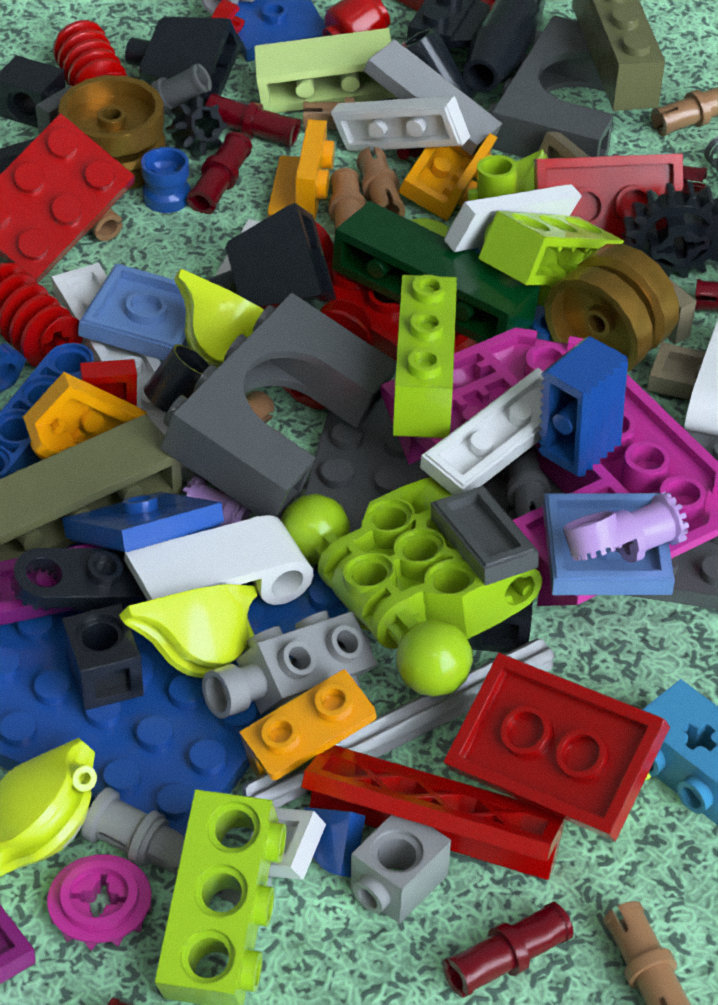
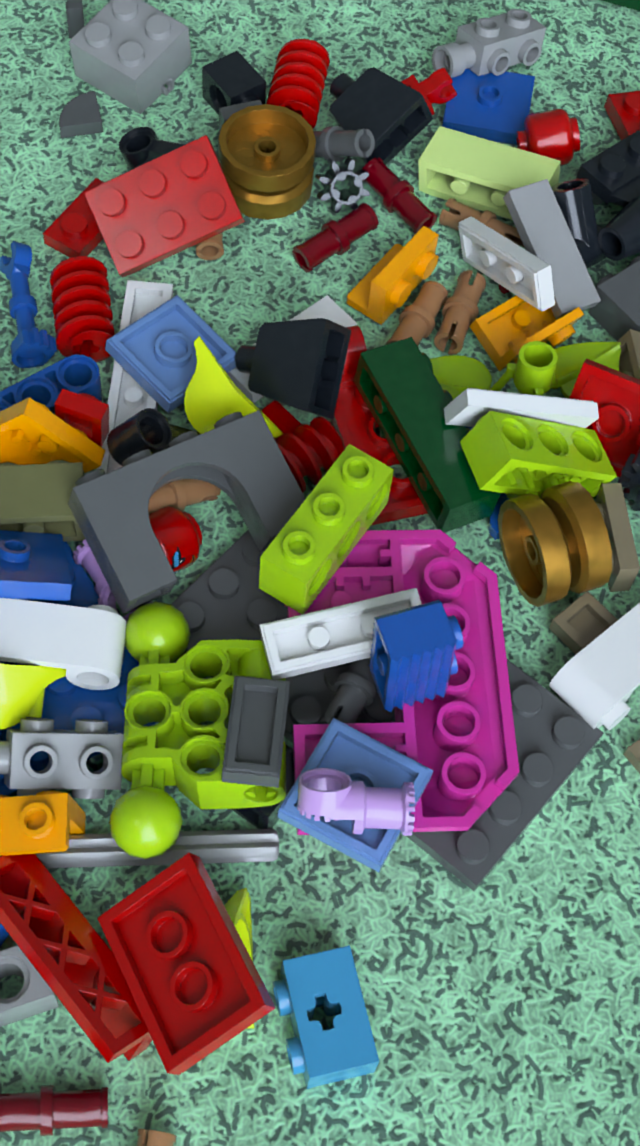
camera: 25 degrees right, 15 degrees up
(165, 179) = (283, 224): blue wheel -> none

